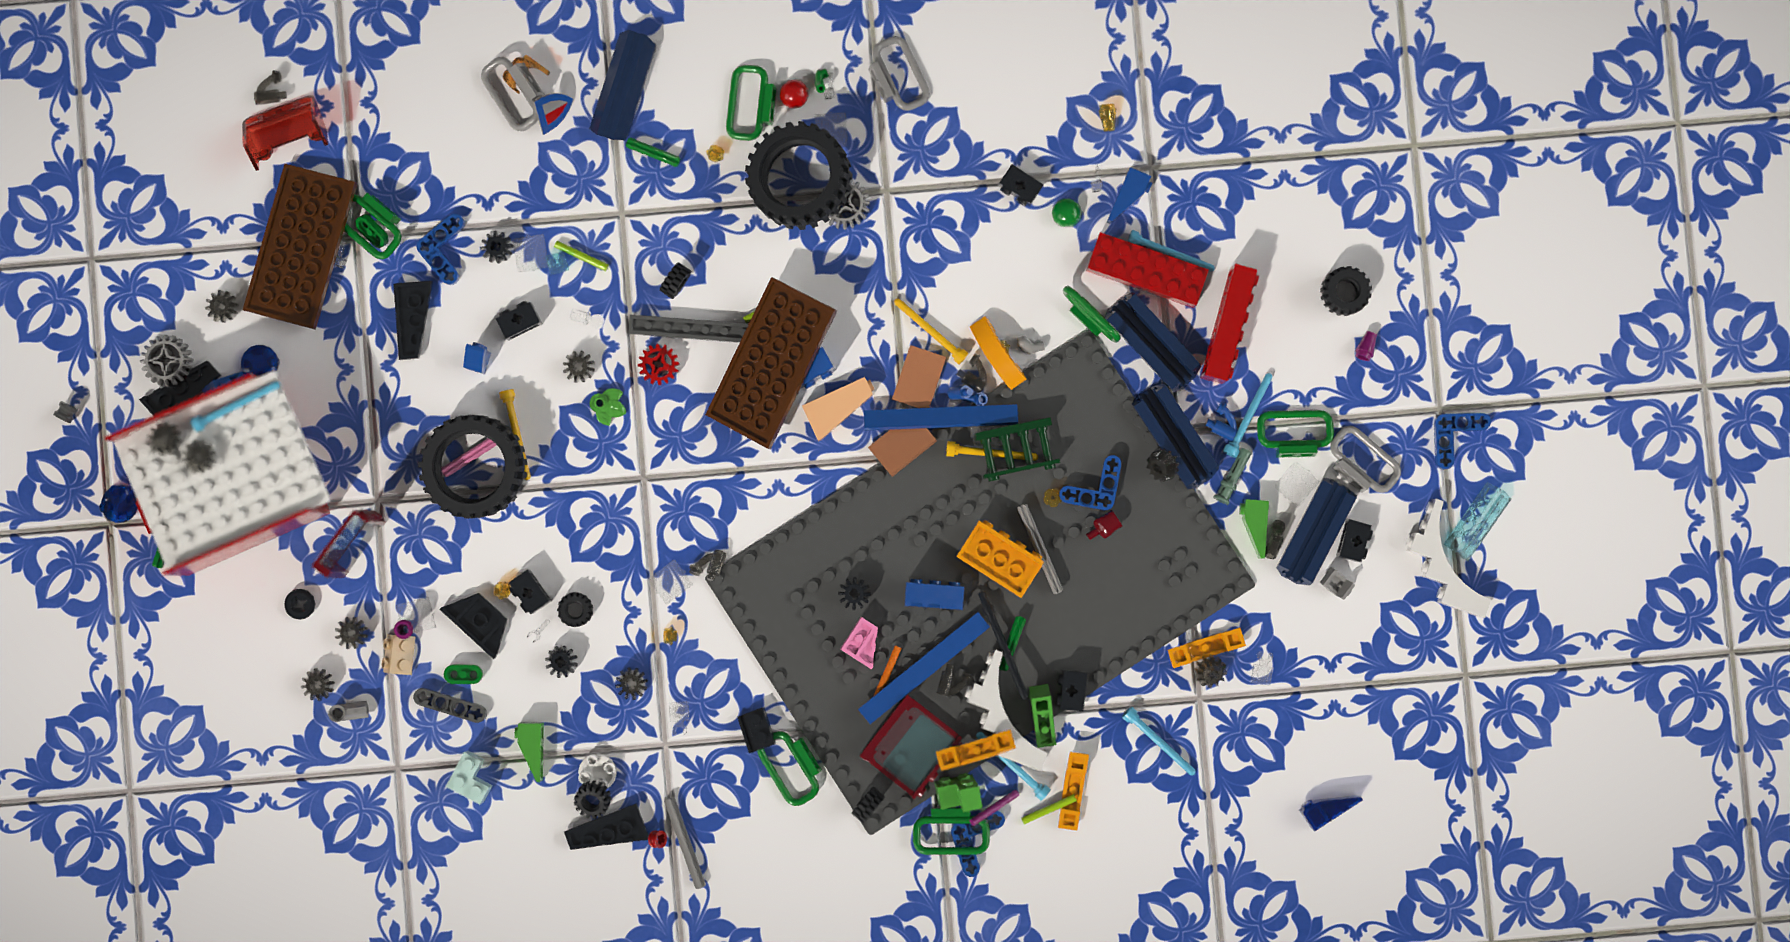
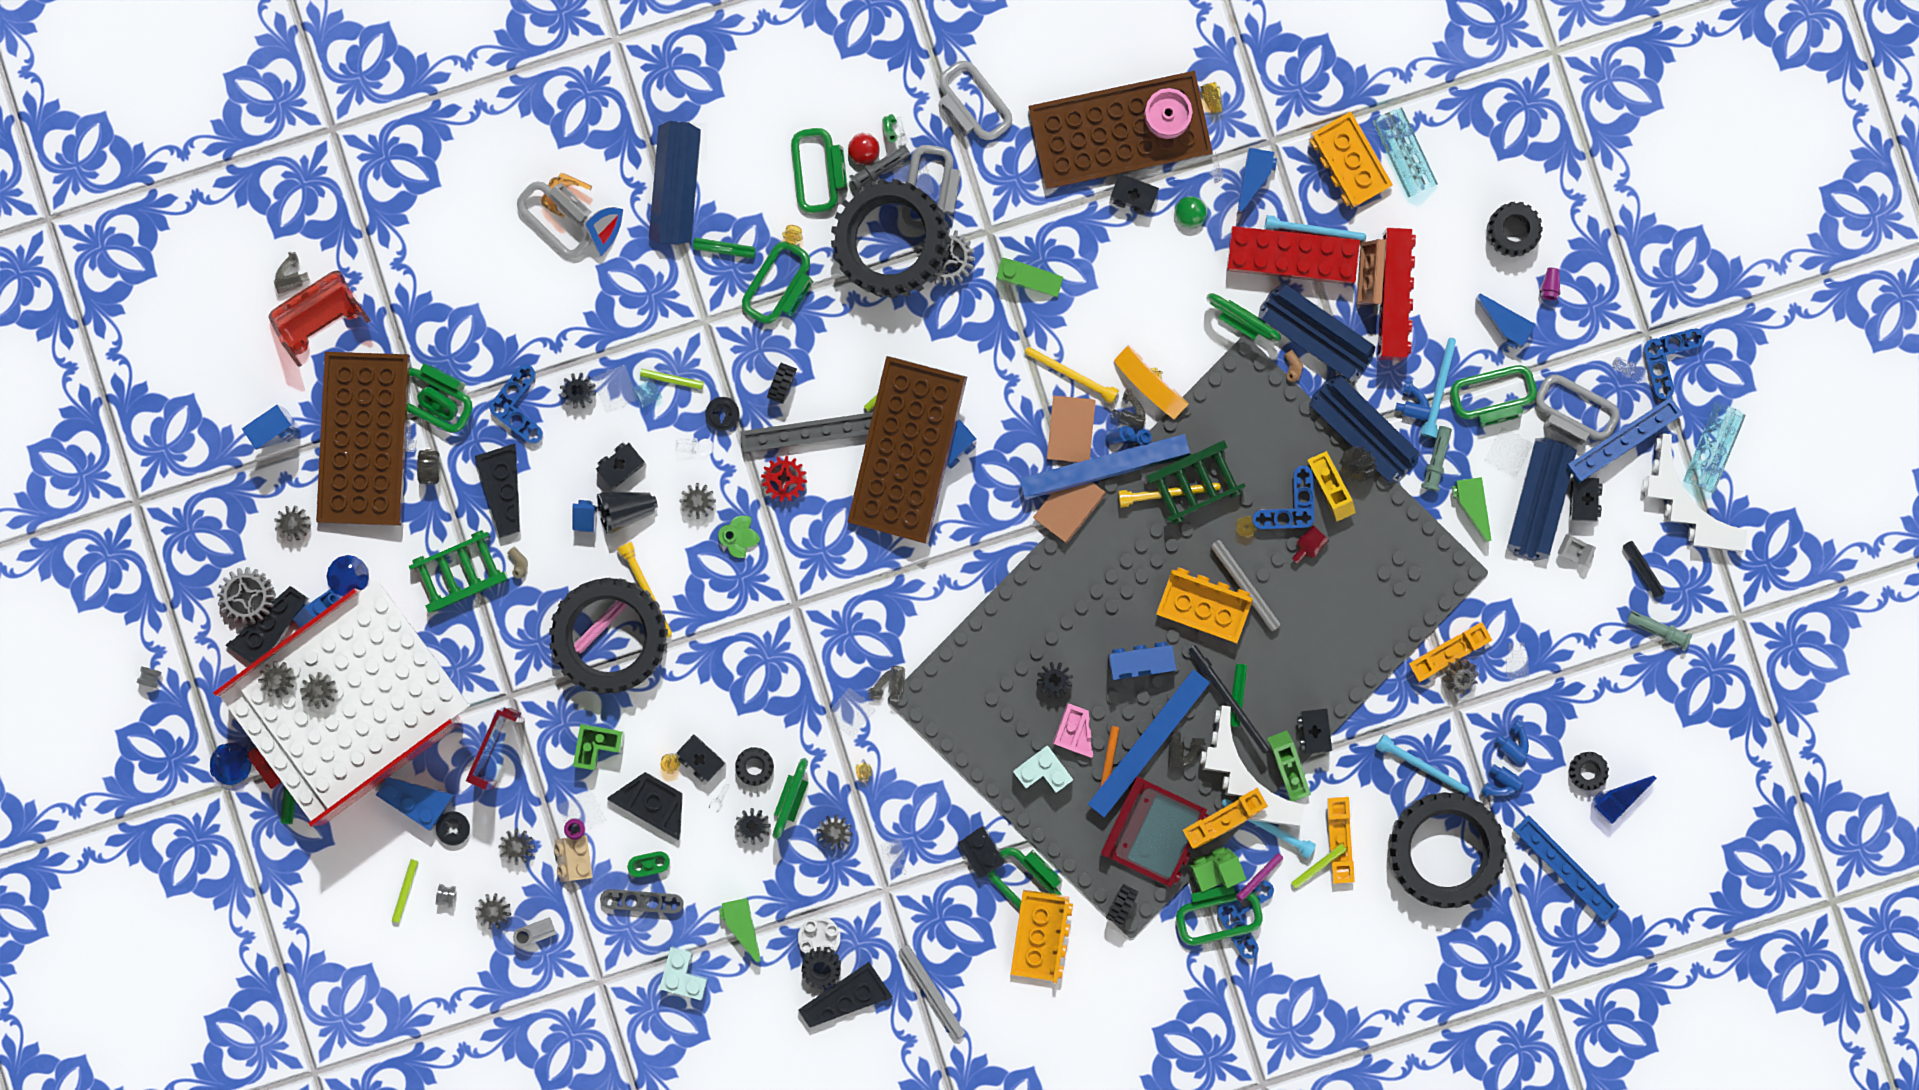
camera: 10 degrees left, 0 degrees up
(200, 422) = (311, 652): medium azure piece -> none
(220, 218) = (271, 428): none -> blue wedge
(245, 649) = (404, 890): none -> lime bar
(272, 573) = (416, 801): none -> blue wedge
(279, 661) = (446, 895): none -> dark grey wheel
(350, 284) = (428, 466): none -> clear smoke gear
(350, 400) = (475, 584): none -> green fence
(412, 387) = (520, 564): none -> dark tan arm
(438, 555) = (590, 742): none -> bright green brick
(513, 359) = (624, 508): none -> black cone
(600, 645) = (790, 798): none -> green bar
(610, 300) = (715, 406): none -> black gear
(662, 839) = (901, 994): red bush -> none
(704, 205) = (794, 293): none -> green bar
(791, 815) = (1041, 935): none -> light orange bracket
(799, 114) = (871, 173): none -> dark grey pin
(828, 666) = (1043, 764): none -> light aqua brick
(835, 407) = (985, 484): light nougat slope -> none
(861, 142) = (949, 184): none -> light grey bar
(912, 237) = (1029, 277): none -> bright green slope
(1021, 127) = (1107, 132): none -> reddish brown plate
(1028, 346) = (1183, 368): light grey arm -> none
(1066, 132) = (1180, 117): none -> bright pink wheel
(1127, 367) = (1295, 368): none -> medium nougat arm
(1135, 479) = (1332, 486): none -> yellow slope
(1203, 835) = (1491, 837): none -> black tyre
(1212, 300) = (1371, 272): none -> nougat tile
(1215, 199) = (1350, 160): none -> light orange bracket
(1231, 769) = (1505, 776): none -> blue plant
(1239, 743) = (1510, 748): none -> blue plant
(1262, 202) = (1402, 153): none -> clear light blue fence
(1265, 860) = (1566, 868): none -> blue plate
(1275, 540) = (1499, 517): clear smoke plant -> none
(1315, 784) = (1579, 761): none -> black tyre
(1322, 373) = (1507, 323): none -> blue slope
(1392, 613) = (1644, 569): none -> black axle
(1401, 497) = (1624, 440): none -> plate
(1401, 674) = (1668, 633): none -> sand green pin
(1425, 441) = (1637, 373): none -> clear axle

